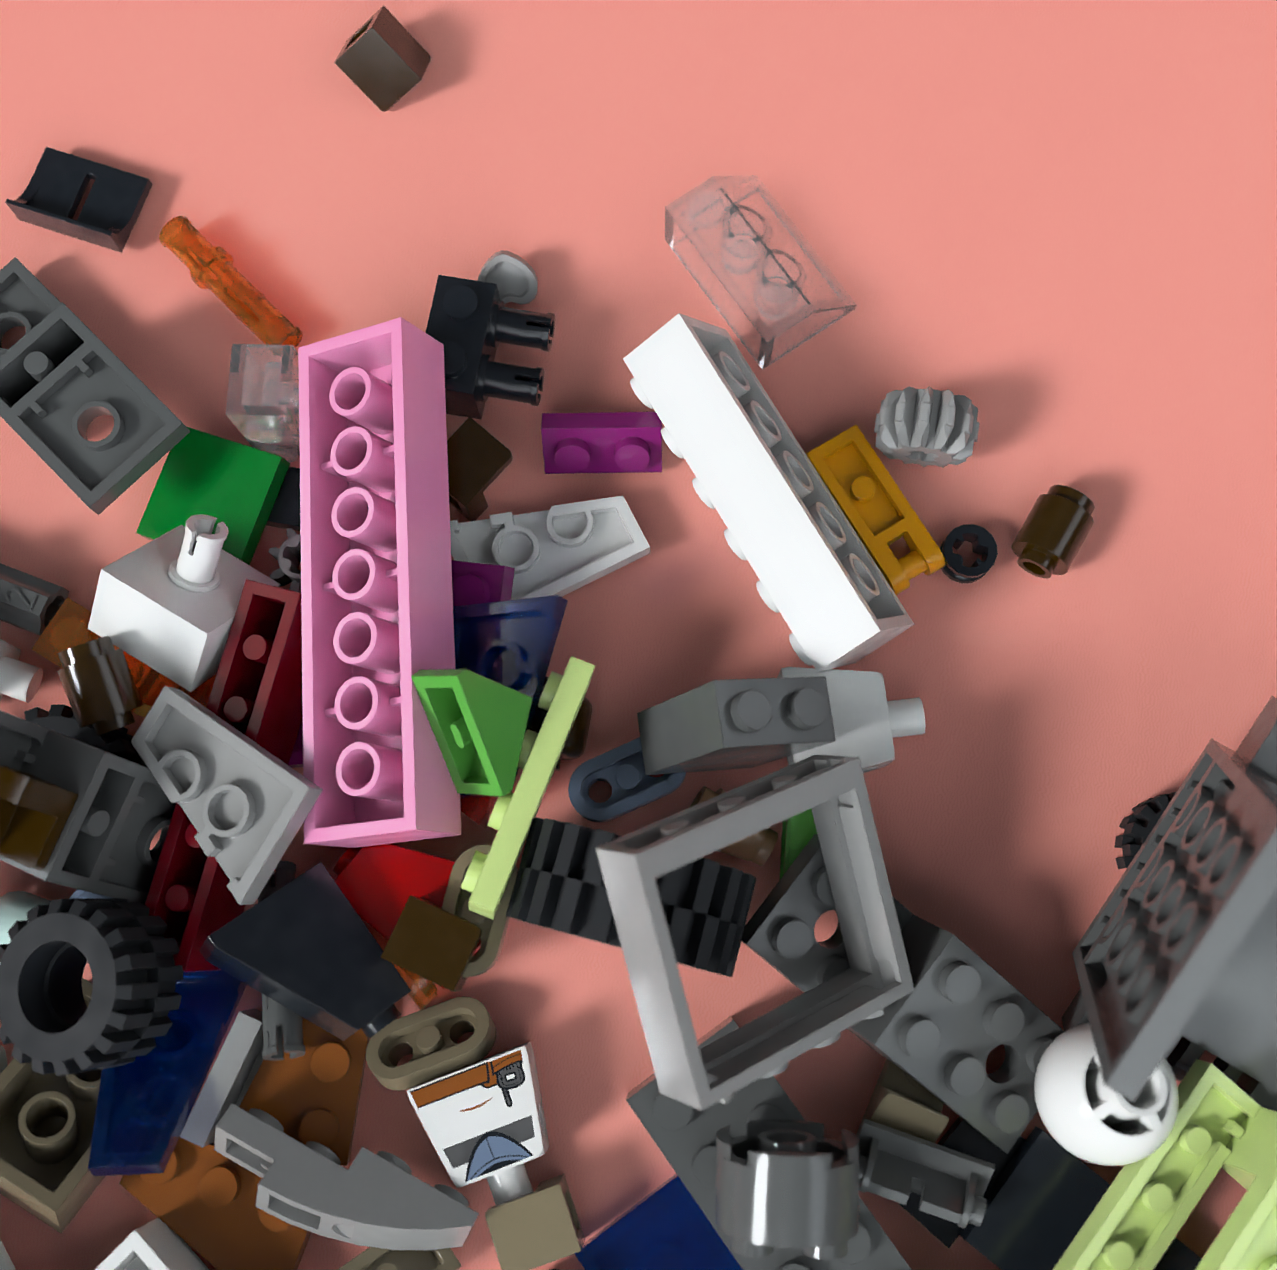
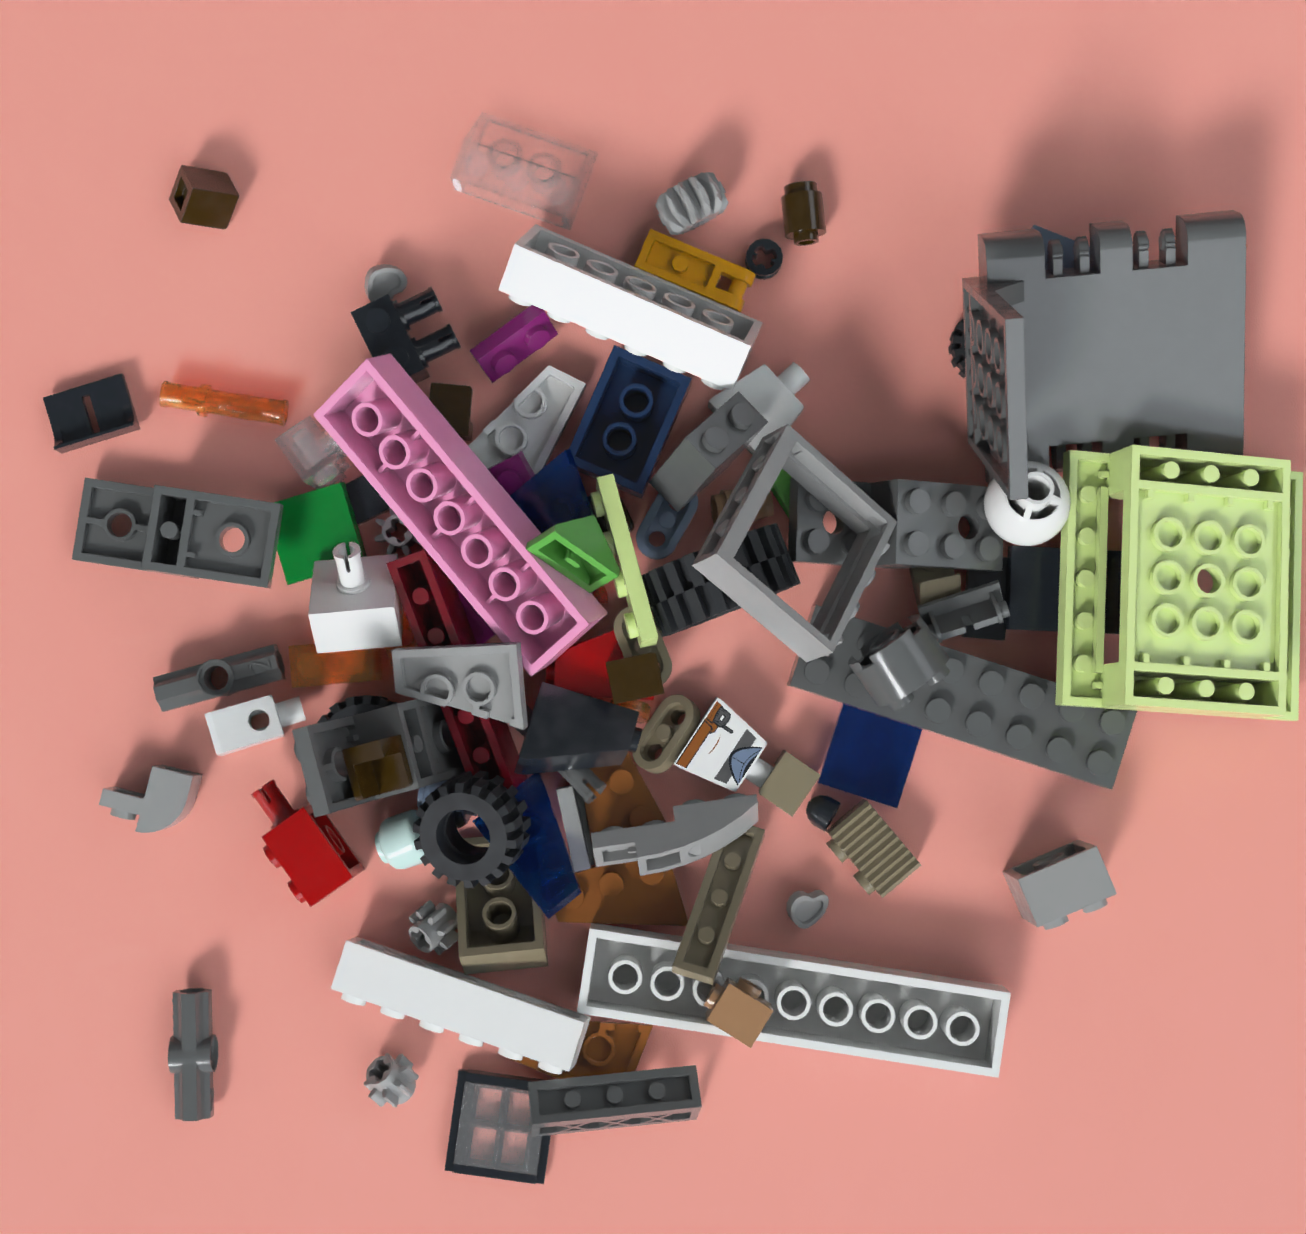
camera: 40 degrees left, 10 degrees up
(99, 685) = (352, 677): dark brown brick -> none
(667, 623) = (629, 420): none -> dark blue brick

